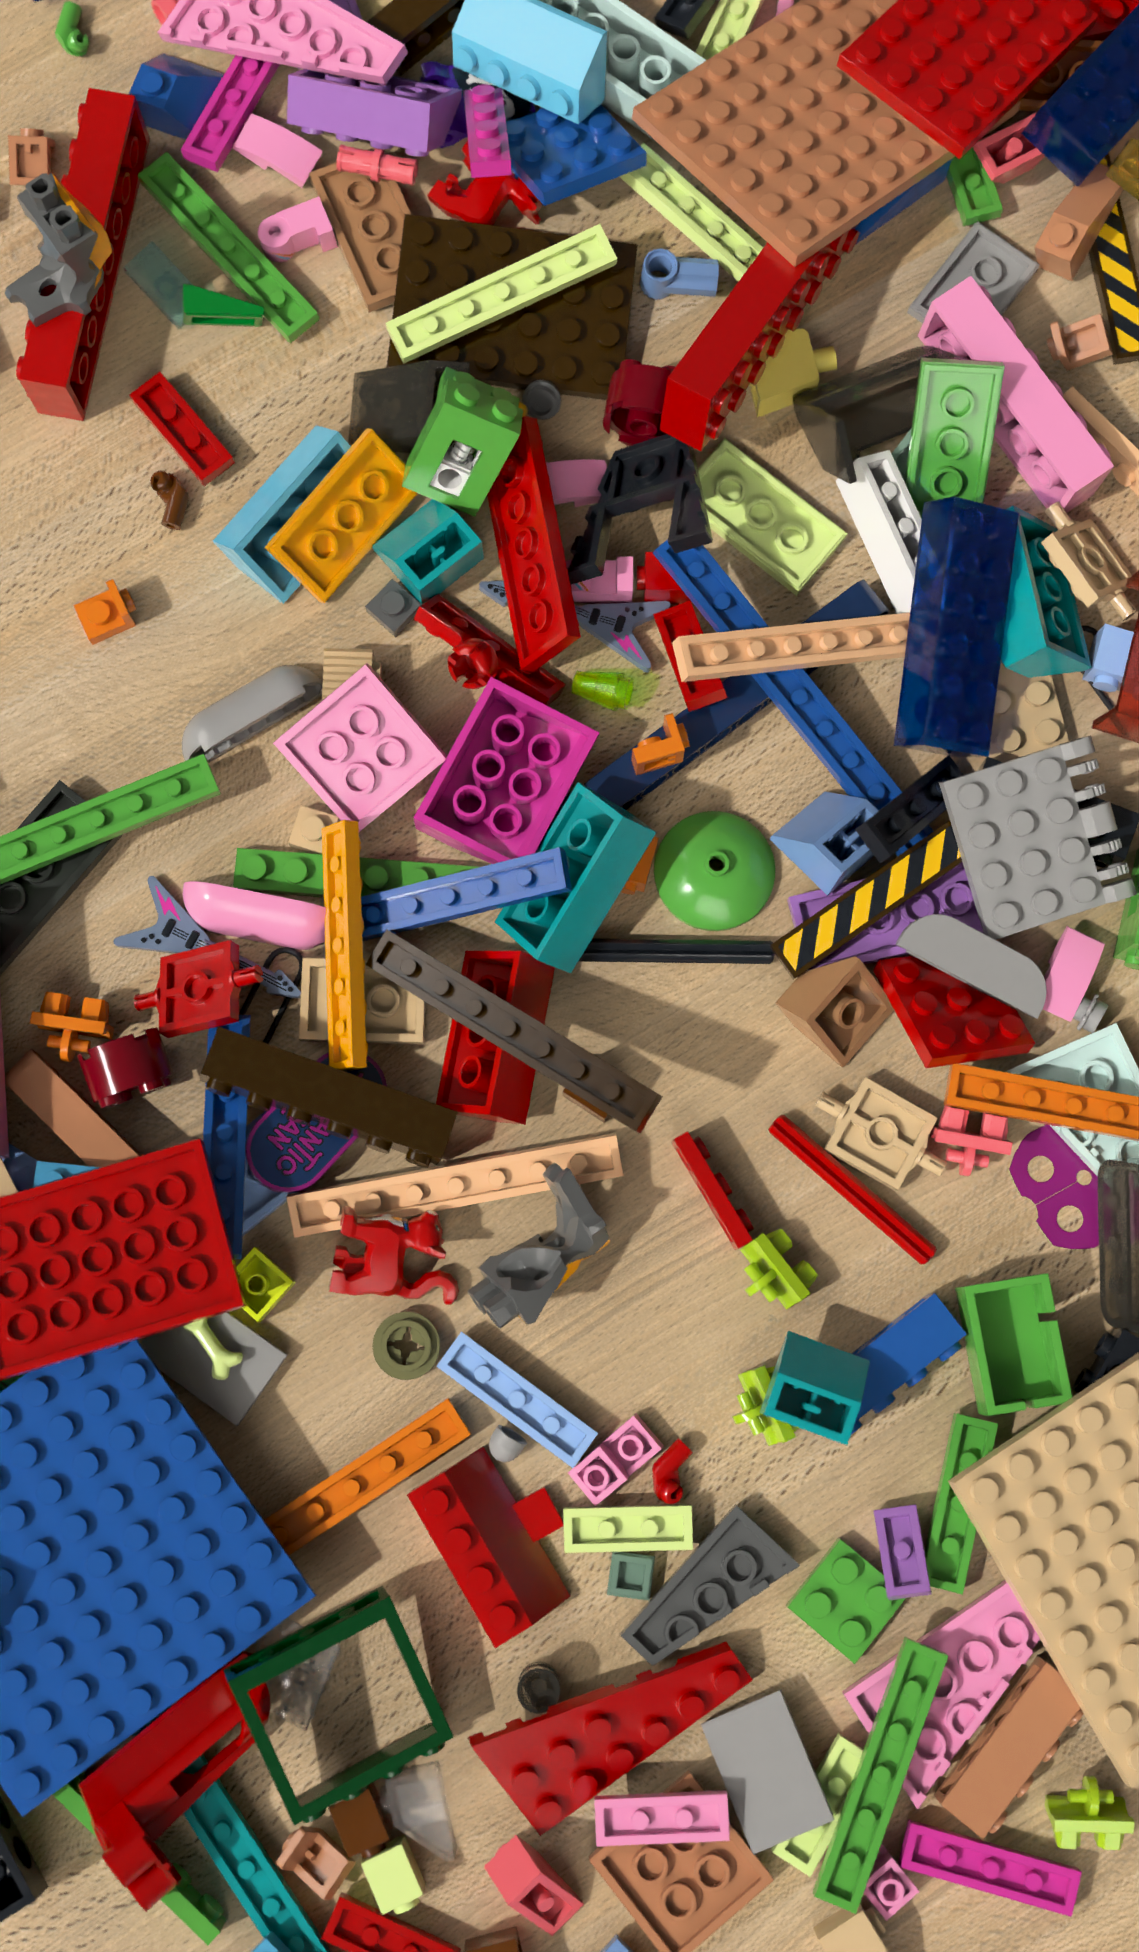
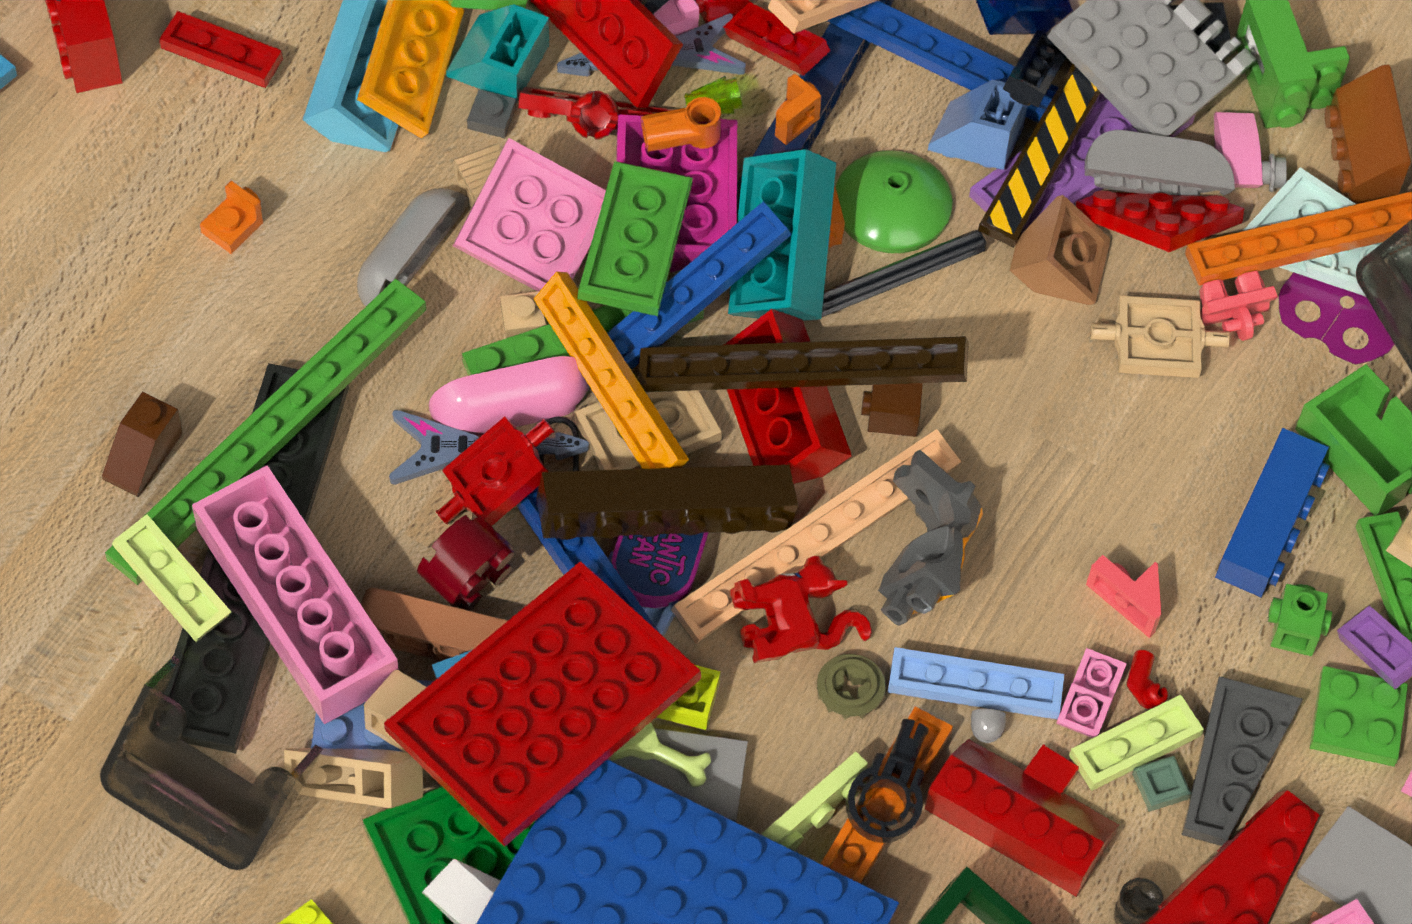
camera: 30 degrees left, 20 degrees down
(54, 1017) = (393, 559): orange hips -> none
(174, 497) = (241, 105): reddish brown arm -> none
(308, 1452) = (817, 805): none -> yellowish green plate
(396, 1453) = (901, 763): none -> black pin
(434, 818) = (635, 238): none -> bright green tile
(531, 721) = (682, 126): none -> orange piece
(707, 1393) = (1133, 599): none -> coral slope
(713, 1189) = (1044, 440): red plate -> none
(755, 1384) = (1196, 587): lime hips -> none
(772, 1273) = (1137, 478): lime hips -> none
(816, 1388) = (1232, 538): teal slope -> none
(826, 1486) = (1299, 619): none -> bright green brick
(852, 1189) = (1162, 391): red axle -> none

